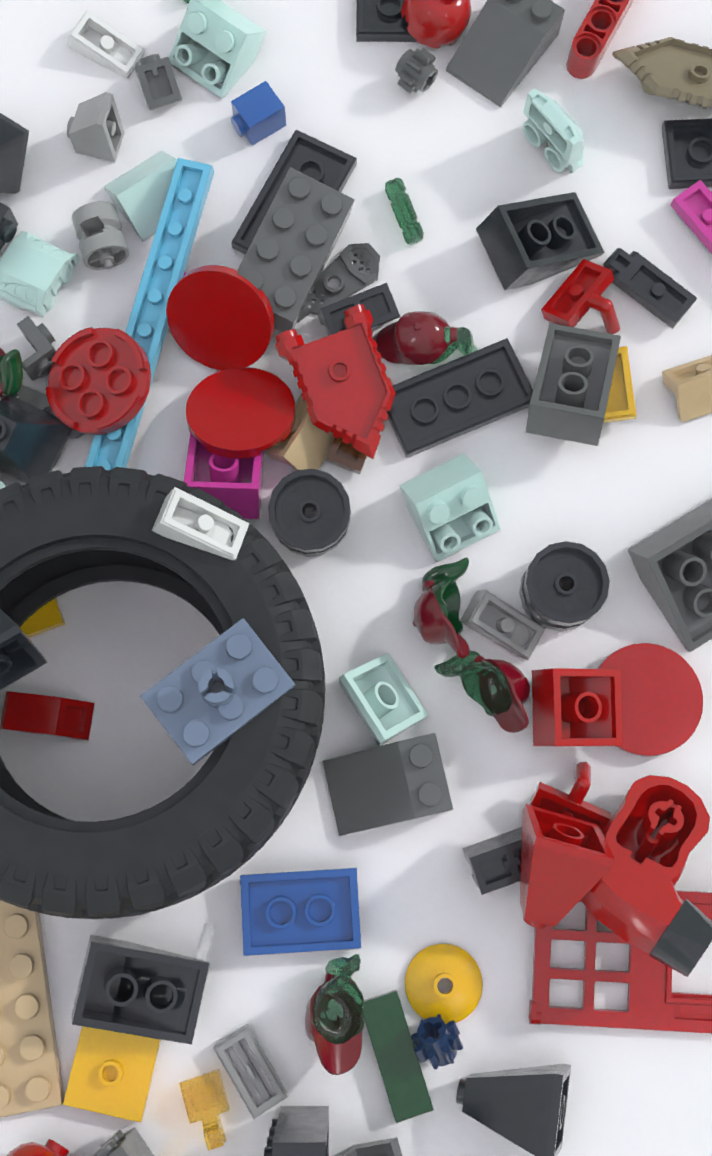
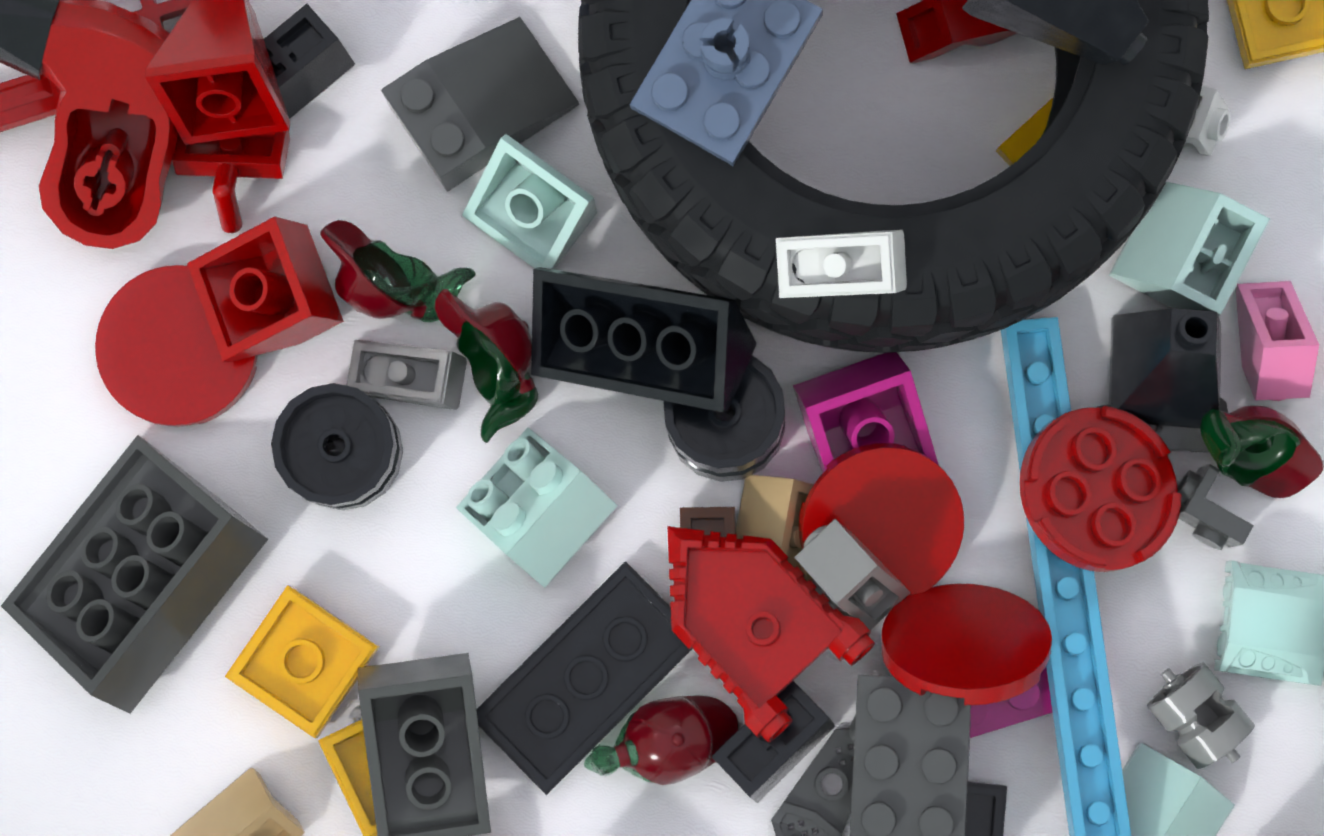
camera: 165 degrees right, 5 degrees up
(273, 385) = (850, 573): none -> light grey slope
(348, 570) = (638, 339): none -> black slope
(629, 469) = (302, 661): none -> yellow plate

